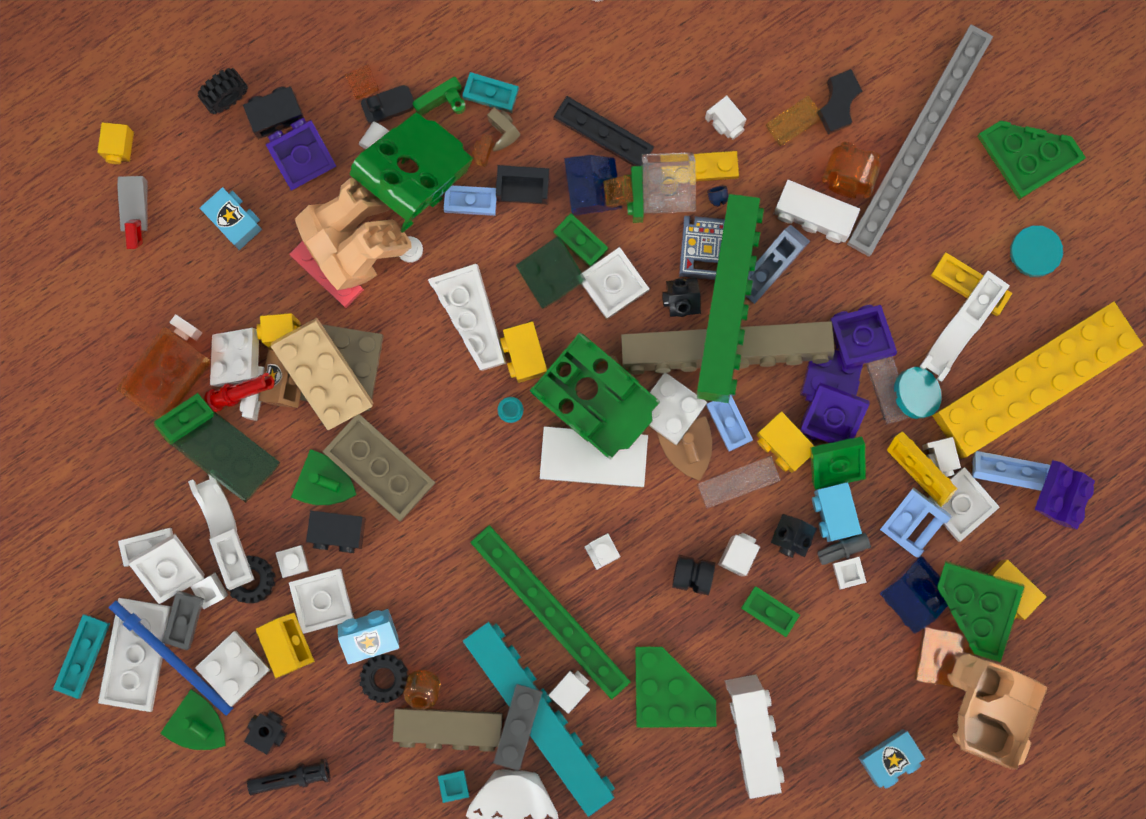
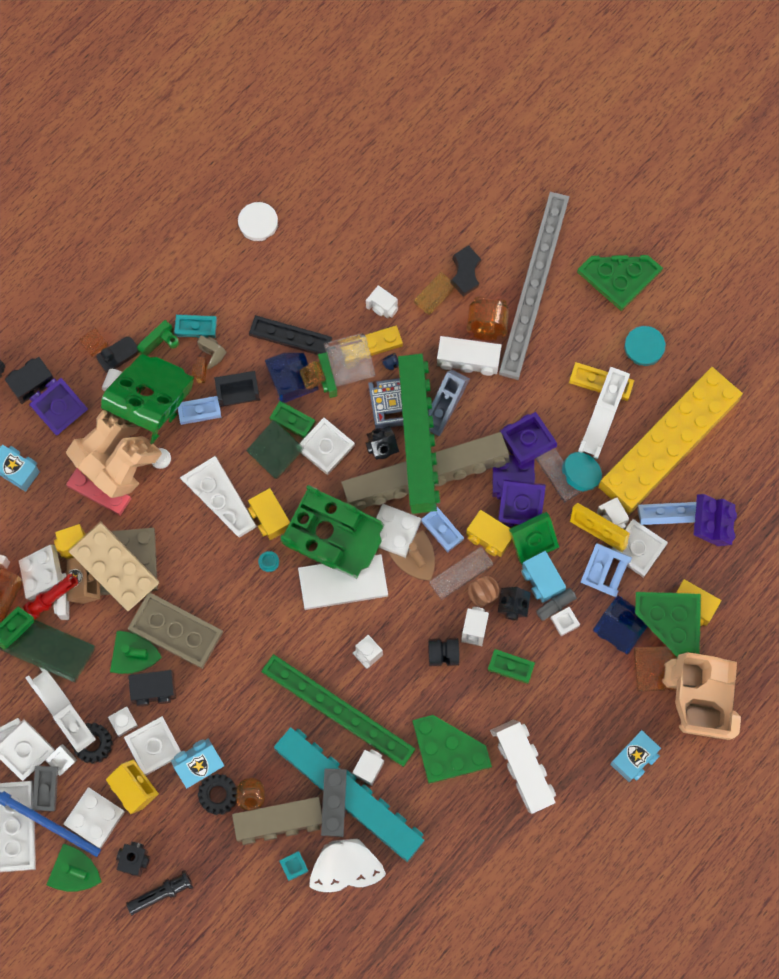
camera: 15 degrees left, 10 degrees down
(760, 512) = (483, 591): none -> nougat piece

